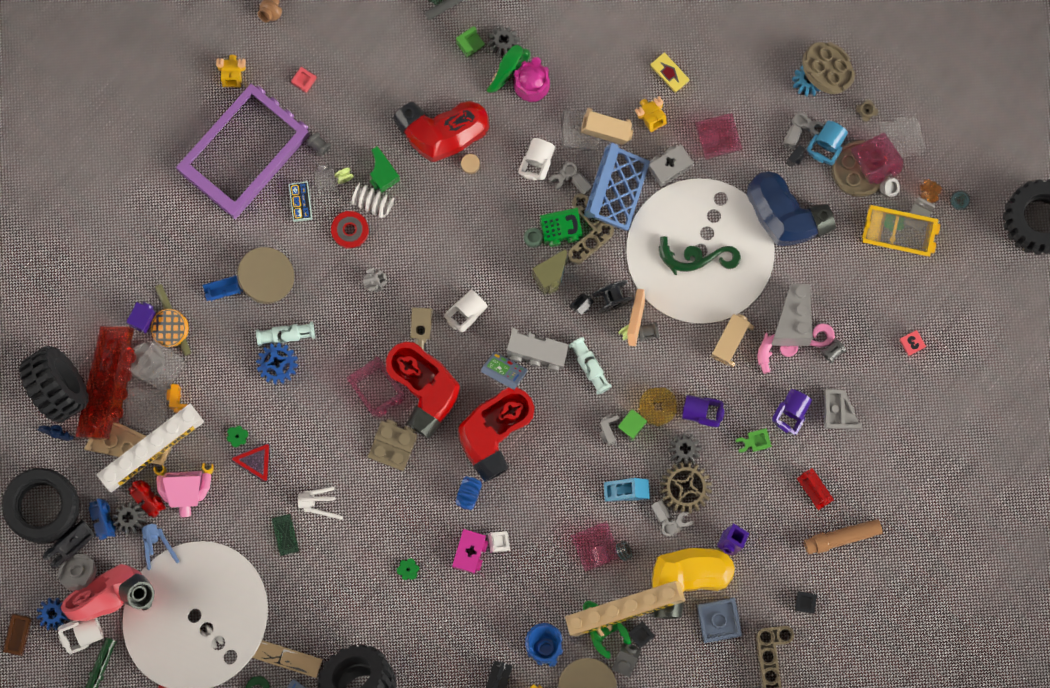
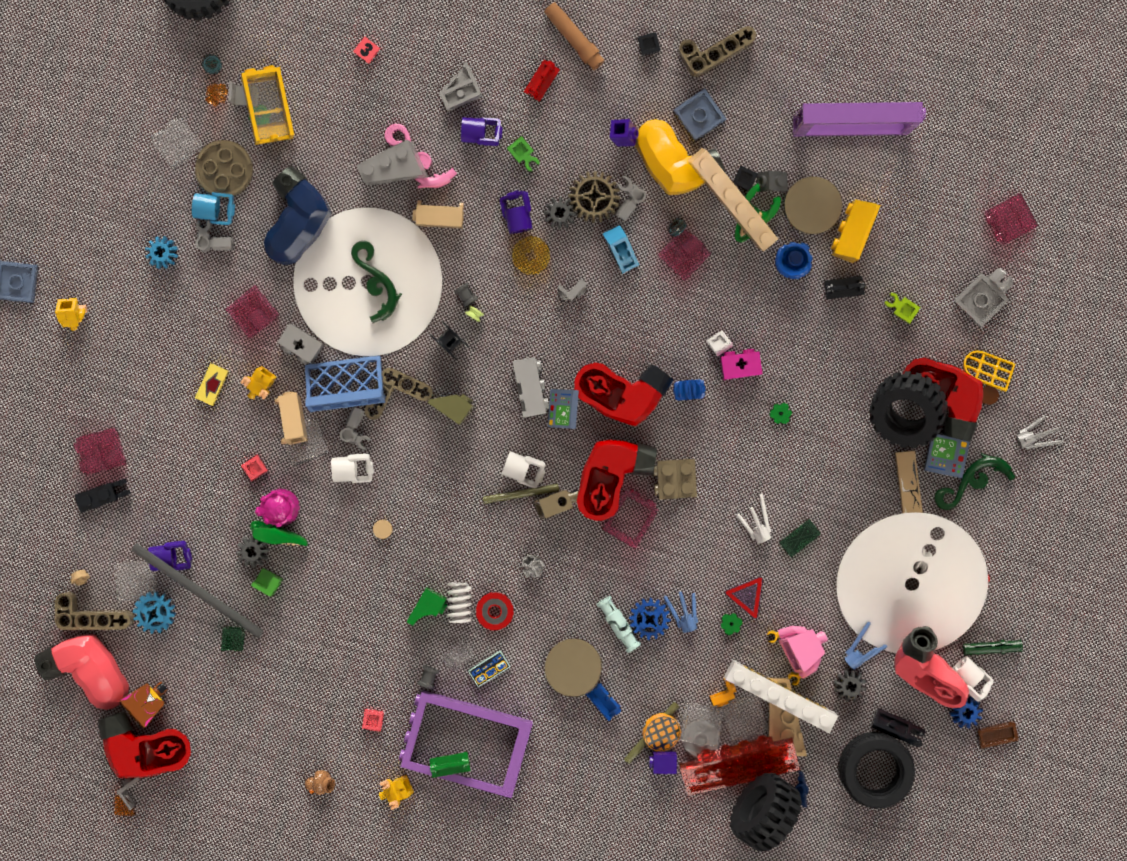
camera: 110 degrees left, 10 degrees up
(77, 572) = (920, 708): light grey tile -> none
(101, 512) = (854, 713): blue hinge -> none
(141, 491) = (820, 686): red hinge -> none
(232, 126) = (449, 764): none -> green hinge
(258, 396) = (687, 622): none -> medium blue plant
(343, 175) = (447, 640): yellowish green bush -> none
(444, 301) = (520, 493): none -> olive bar
(446, 132) = (364, 564): red piece -> none
(533, 237) = (425, 439): sand green tile -> none
(561, 227) = (406, 417): green slope -> none
(577, 76) = (254, 468): none -> coral tile
(582, 304) = (468, 366): black plate -> none
(591, 368) = (525, 328): light aqua piece -> none
(632, 424) = (559, 270): bright green panel -> none
(636, 317) = (459, 310): light nougat tile -> none
(796, 157) = (239, 231): black plate -> none
(828, 67) = (141, 238): dark tan tile -> none
(833, 351) = (411, 123): dark grey bush -> none
(868, 104) = (159, 187): dark tan plate -> none
(878, 158) = (208, 154): clear pink plate -> none
(890, 187) = (229, 133): light grey tile -> none

